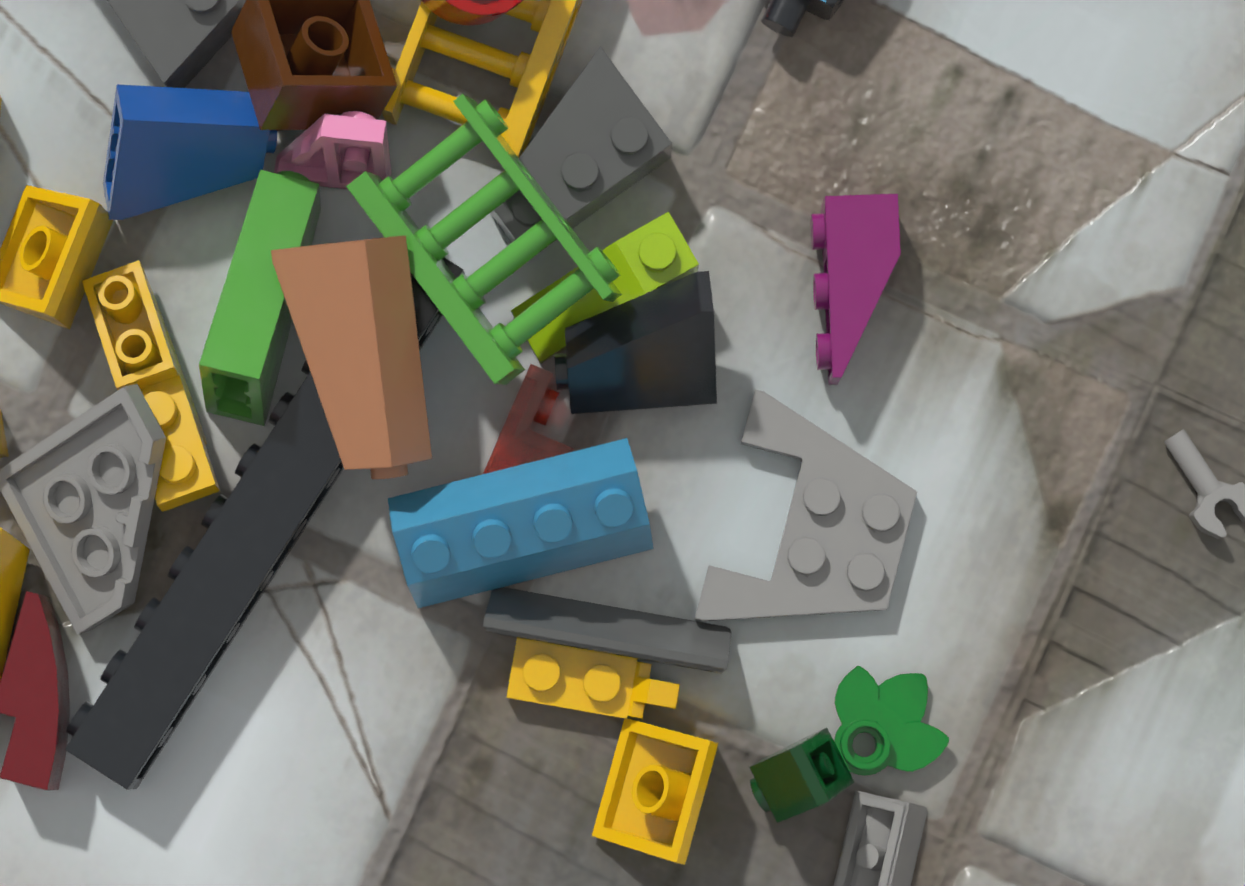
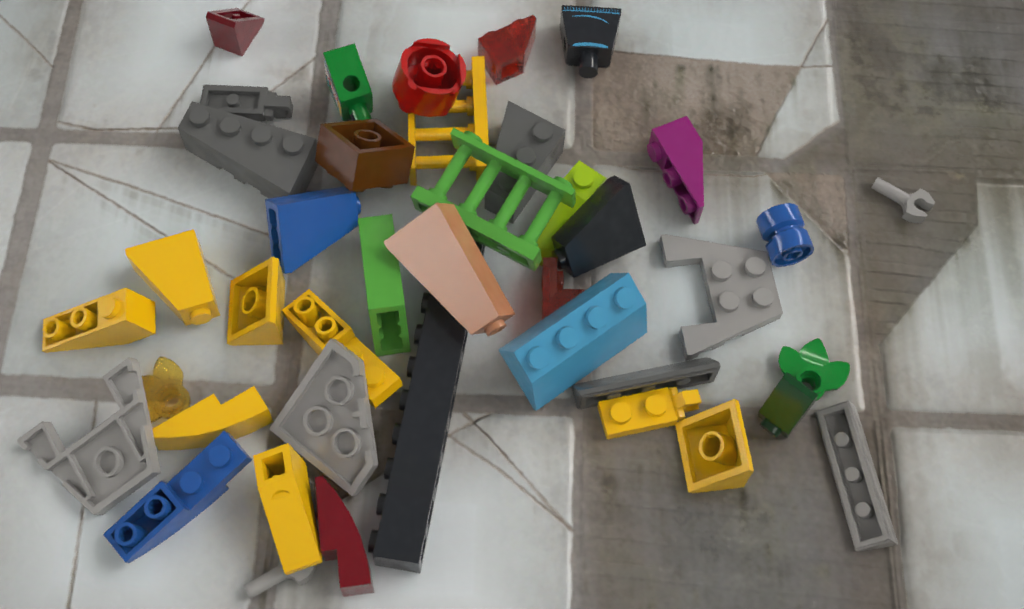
camera: 25 degrees left, 20 degrees down
(338, 150) = (394, 193): bright pink wing -> none
(957, 478) = (785, 235): none -> blue wheel

